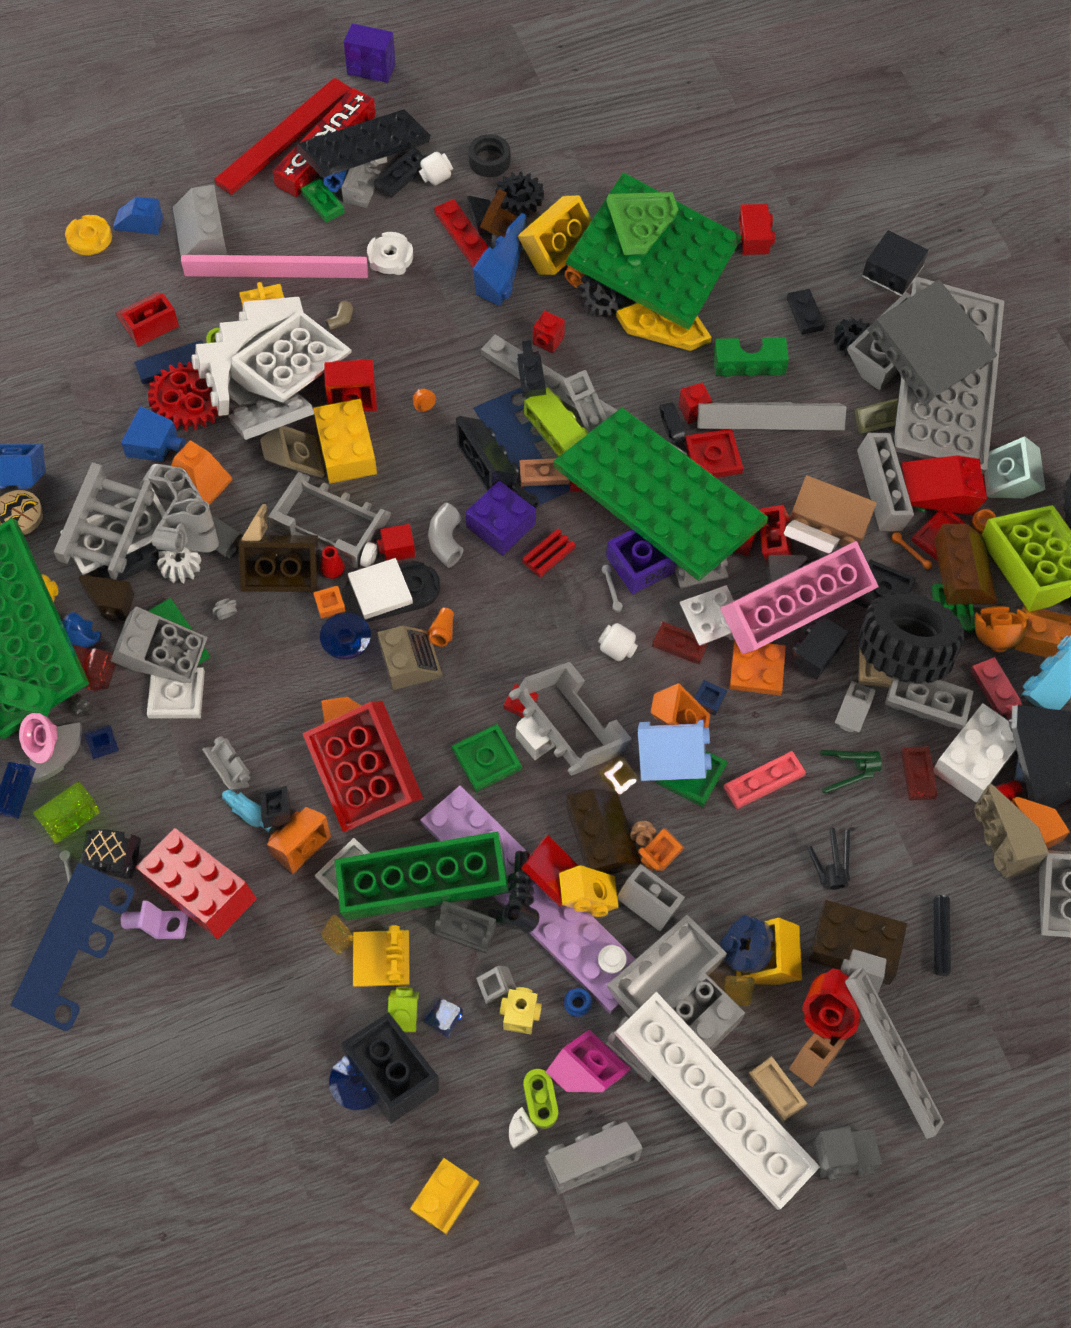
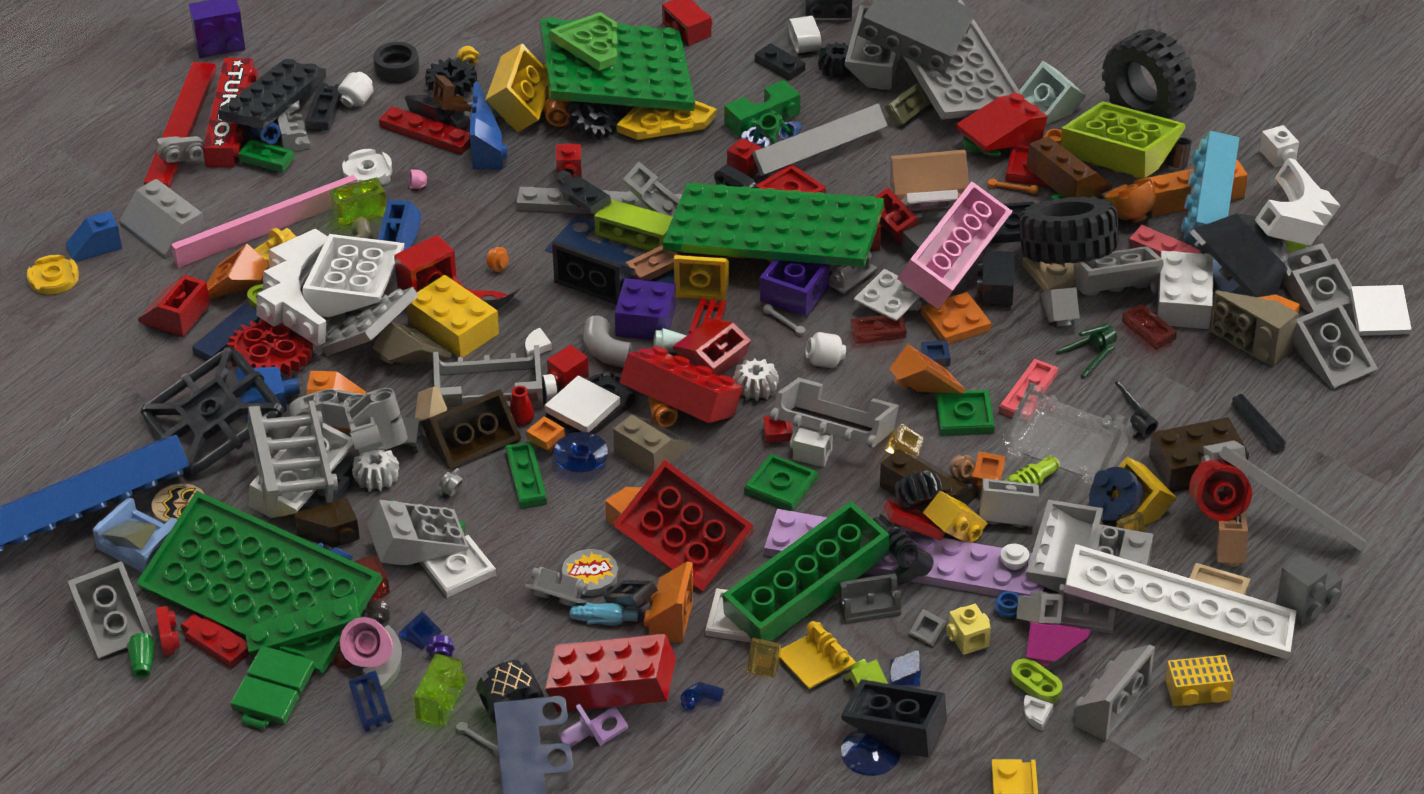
camera: 30 degrees left, 20 degrees down
(101, 769) = (440, 645): none -> dark purple plate
(104, 444) = (215, 395): none -> black plate
(213, 308) = (237, 272): none -> orange slope
(255, 163) = (180, 149): none -> light grey bracket
(264, 937) = (699, 691): none -> clear blue arm
(269, 760) = (594, 567): none -> tile
(292, 631) = (526, 475): none -> green tile
(353, 285) = (361, 199): none -> clear neon green brick
(365, 330) = (400, 223): none -> blue slope
(379, 425) = (501, 298): none -> piece
(395, 501) = (537, 337): none -> white tile
(421, 284) = (417, 179): none -> bright pink hinge
(466, 616) = (681, 384): none -> red brick
(499, 561) = (666, 339): none -> light aqua cone
(523, 589) = (714, 345): none -> red slope
(538, 640) = (756, 378): none -> white gear
(549, 178) = (469, 54): none -> yellow plate
(569, 508) = (701, 277): none -> yellow slope
(569, 849) = (917, 490): none -> black gear
(594, 1021) = (1040, 607): none -> light grey brick
(673, 751) = (941, 392): light blue panel -> none
(677, 1189) = (1199, 680): none -> yellow brick
(693, 876) = (1035, 472): none -> lime hinge
(730, 385) = (770, 126): none -> plant
(755, 854) = (1074, 437): none -> clear windscreen
(845, 294) = (804, 34): none -> white beam
(885, 482) = (941, 134): light grey brick -> none

